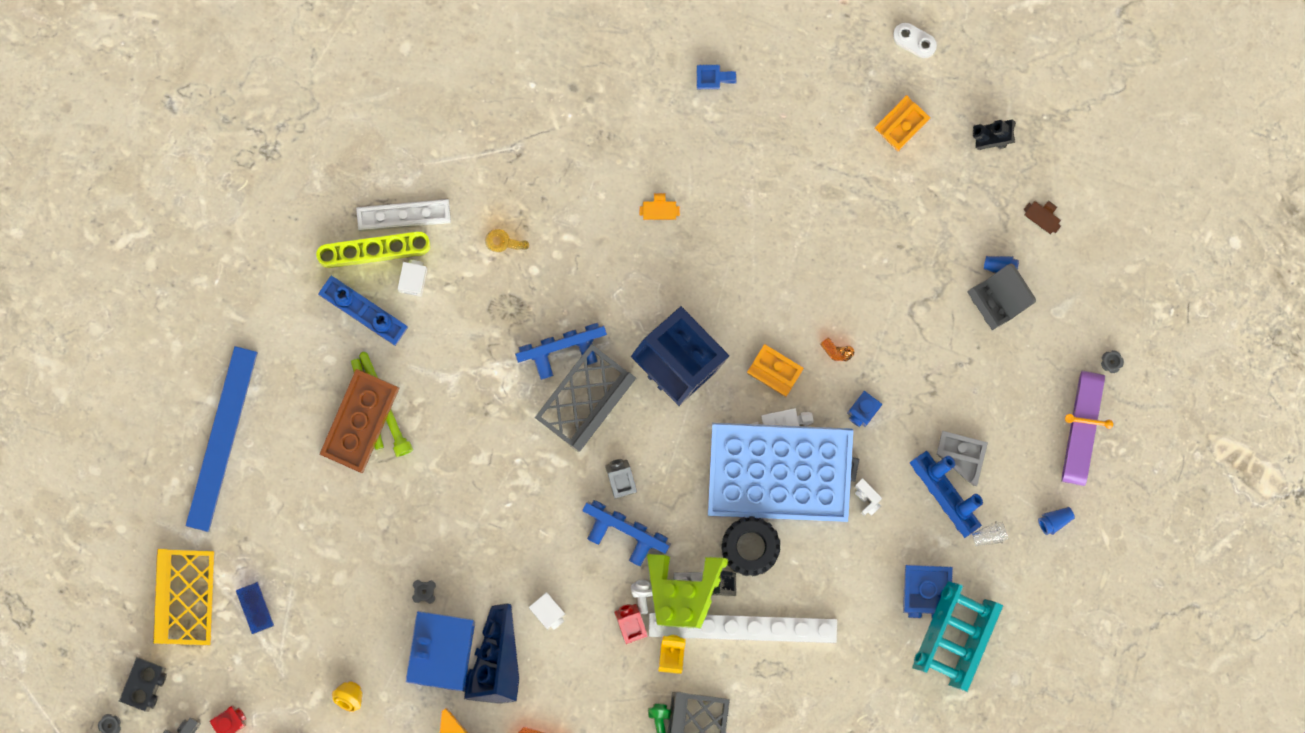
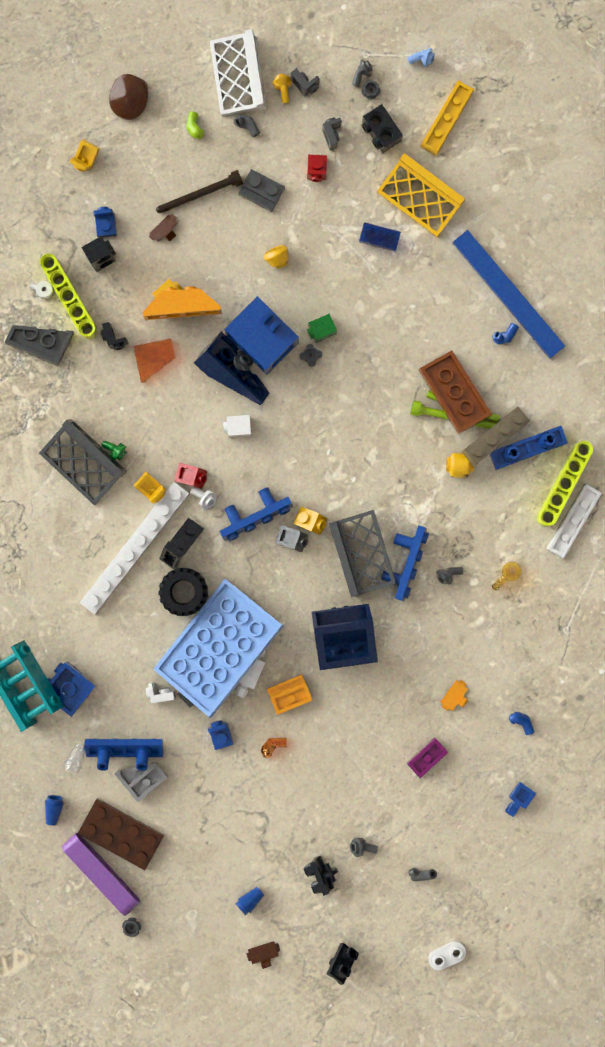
camera: 125 degrees right, 5 degrees up
(36, 693) = (426, 56): none -> light blue plate
(84, 628) = (447, 118): none -> yellow tile
(267, 410) = (505, 337): none -> blue arm
(375, 349) = (495, 436): none -> dark tan plate
(390, 599) = (321, 328): none -> green brick
(412, 278) = (526, 496): white brick -> none
(429, 365) = (458, 466): none -> yellow head
(479, 653) = (242, 361): none -> dark grey plate
(549, 301) = (445, 575): none -> dark grey plate
(590, 472) = (310, 520): none -> yellow bracket
(634, 126) = (524, 720): none -> blue arm
(680, 601) = (178, 518): lime wing -> none
(739, 193) = (427, 757): none -> magenta plate
(854, 116) = (422, 875): none -> dark grey arm
(871, 199) = (358, 847): none -> dark grey plate
(902, 123) = (396, 904): light orange plate -> none
(924, 212) = (323, 874): none -> black hips
(1002, 296) = (228, 886): dark grey bracket -> none
(1031, 437) = (120, 834): none -> reddish brown plate
(1069, 418) = (112, 870): light orange hinge -> none

